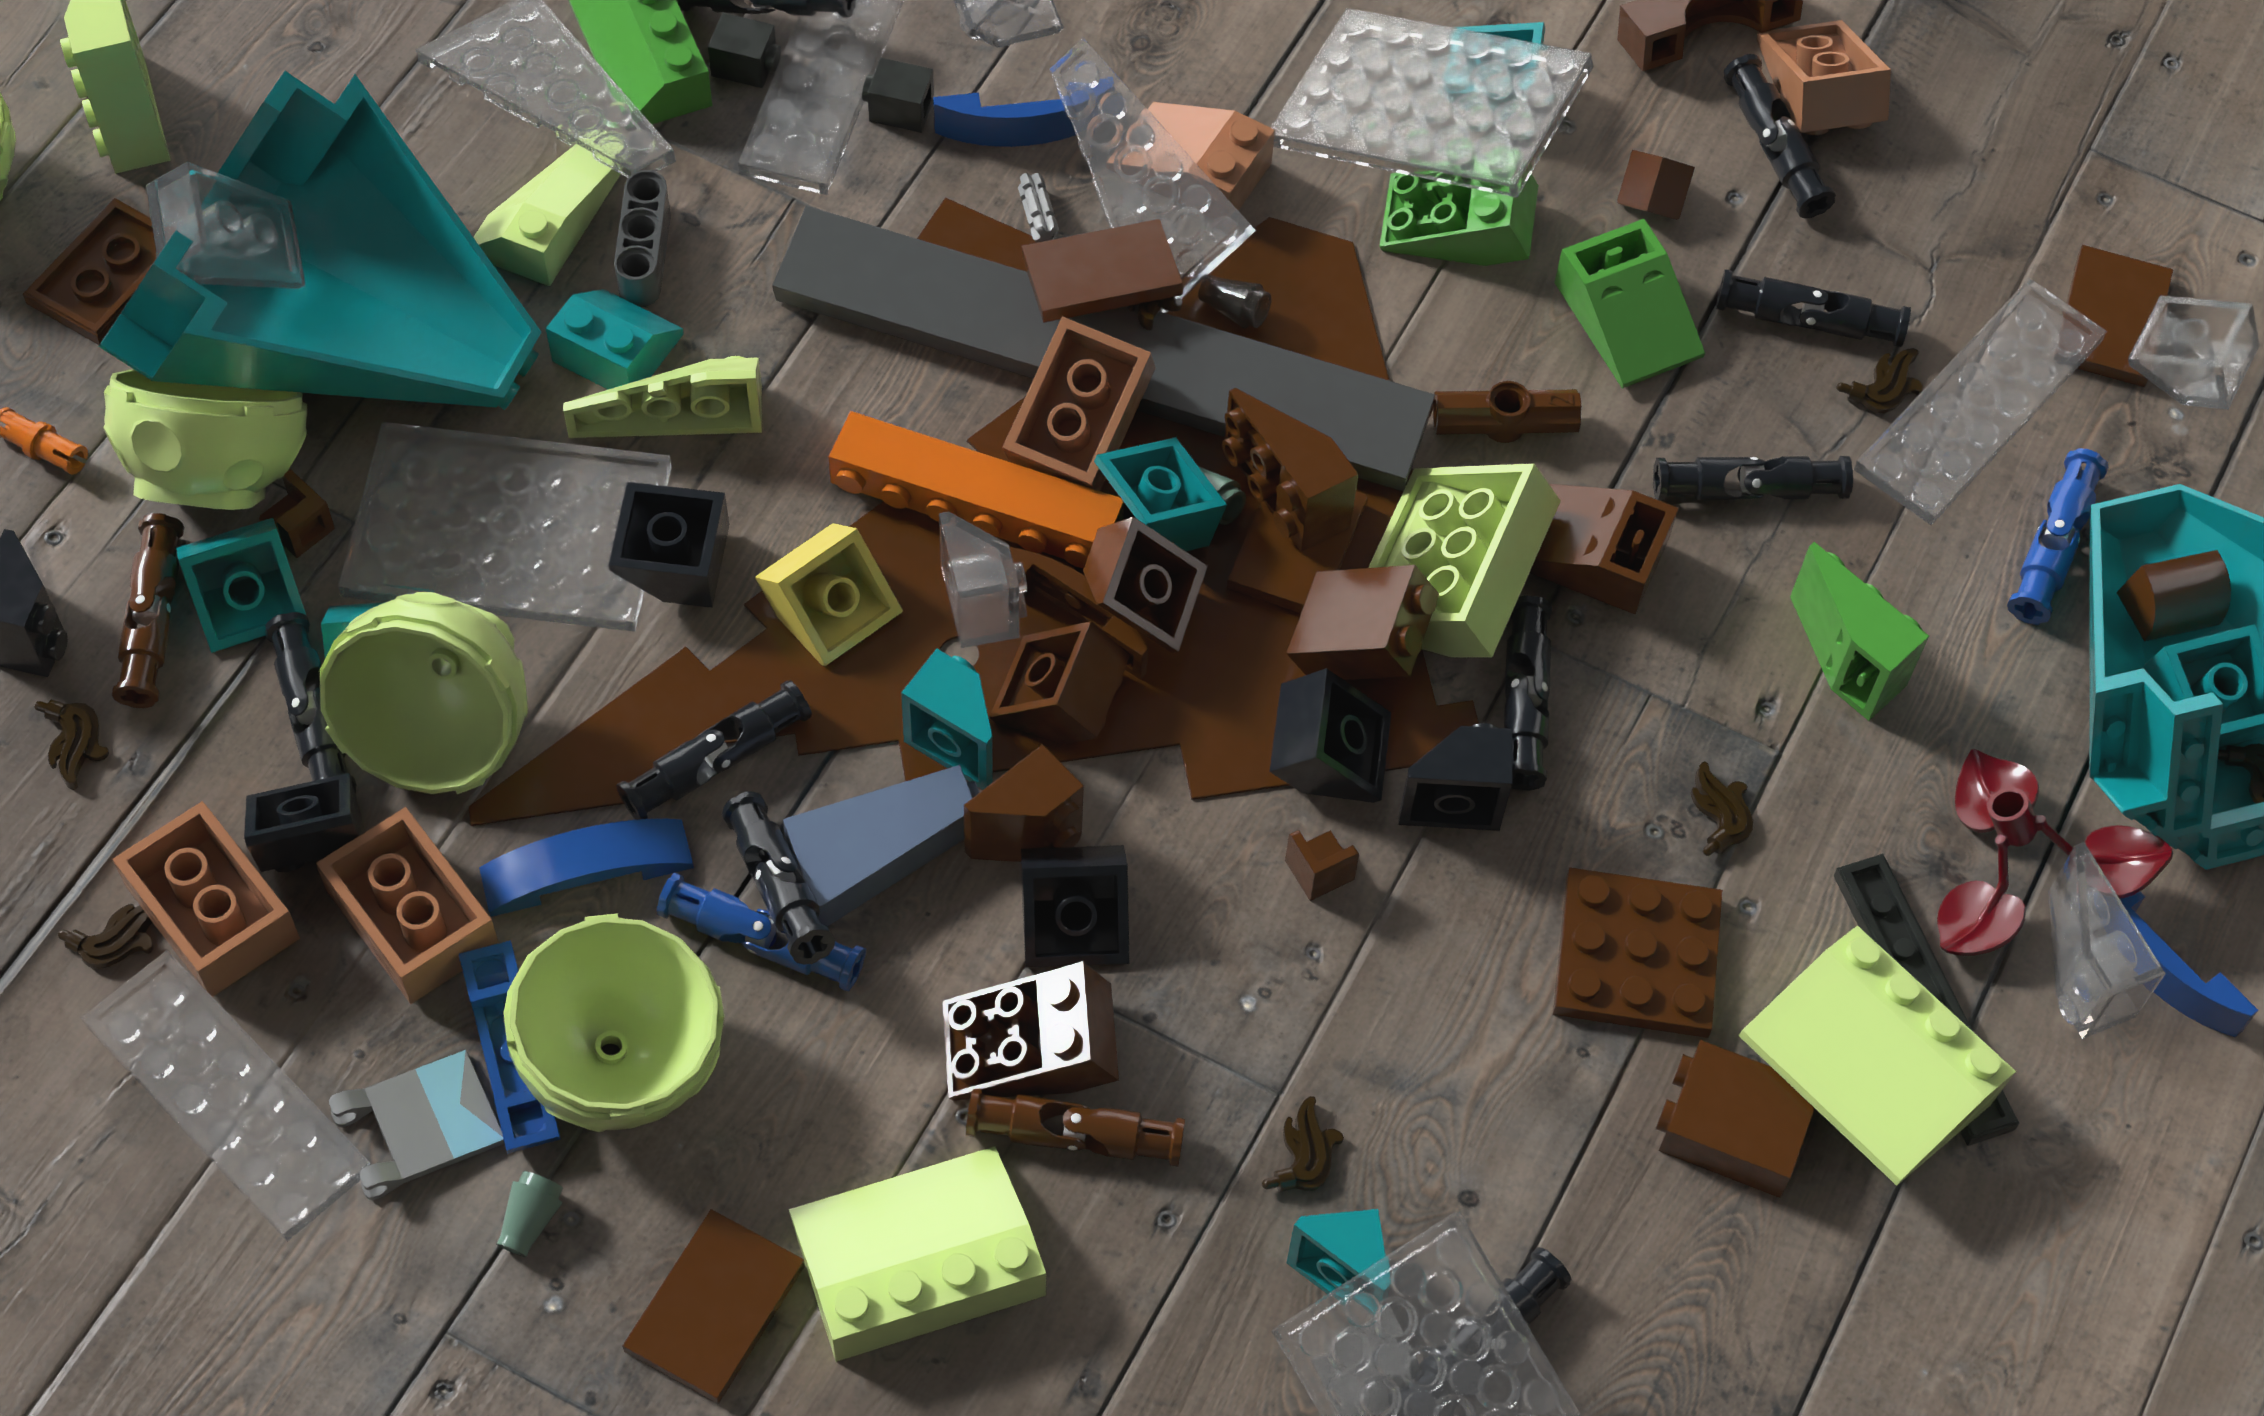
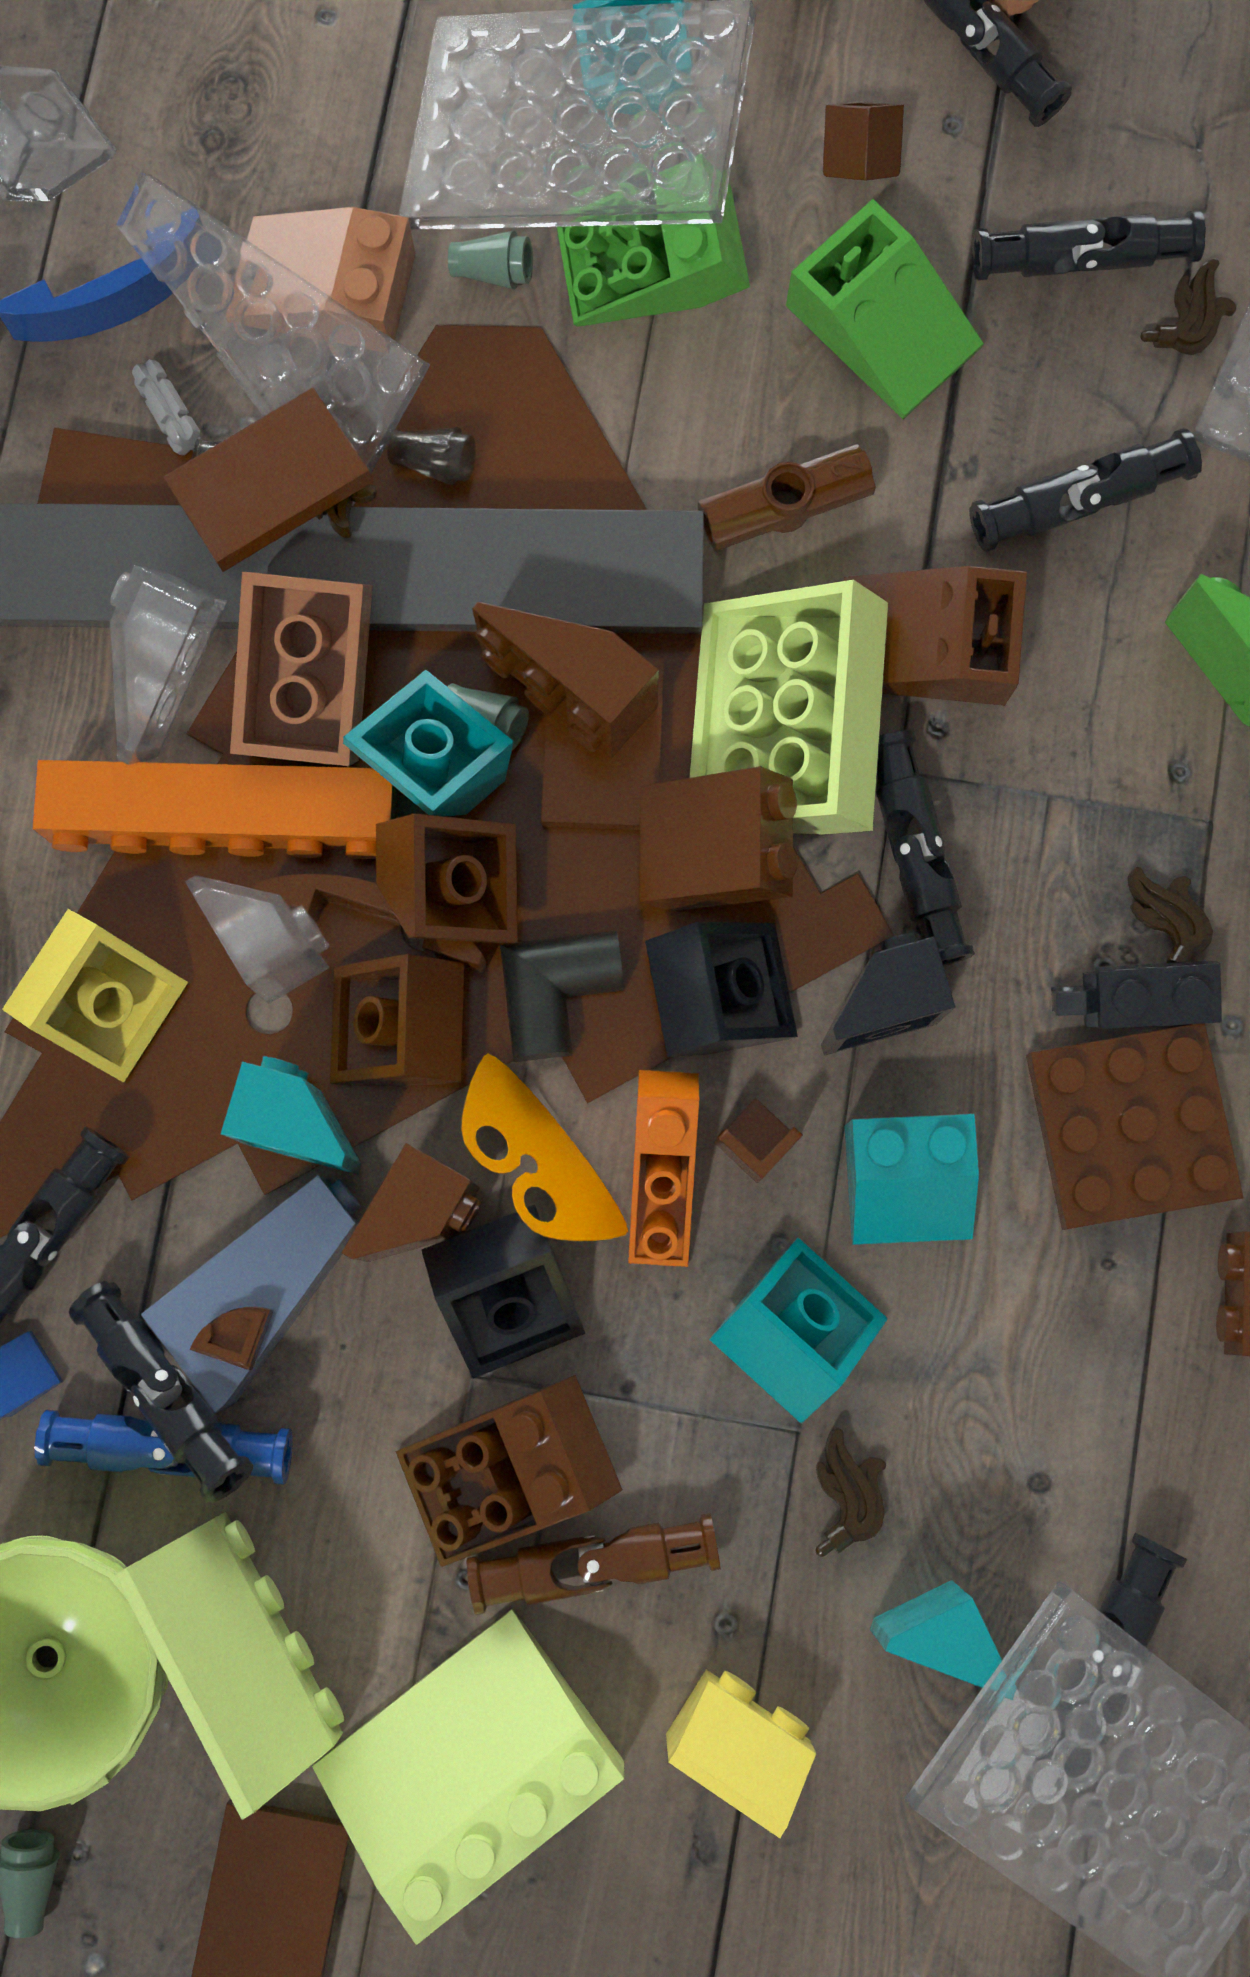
camera: 15 degrees left, 20 degrees up
(770, 1083) = (233, 1660): none -> yellowish green slope
(852, 854) = (234, 1336): none -> reddish brown tile
(978, 354) = (156, 650): none -> clear slope
(1147, 1295) = (742, 1750): none -> light yellow slope
(1159, 850) = (581, 1199): none -> light orange piece
(1195, 690) = (541, 978): none -> pearl dark grey brick
(1236, 858) = (664, 1168): none -> orange slope
(1304, 1007) = (799, 1331): none -> teal slope
(1333, 183) = (493, 259): none -> sand green cone
(1438, 925) = (912, 1178): none -> teal slope
(1677, 853) = (1144, 995): none -> black hinge

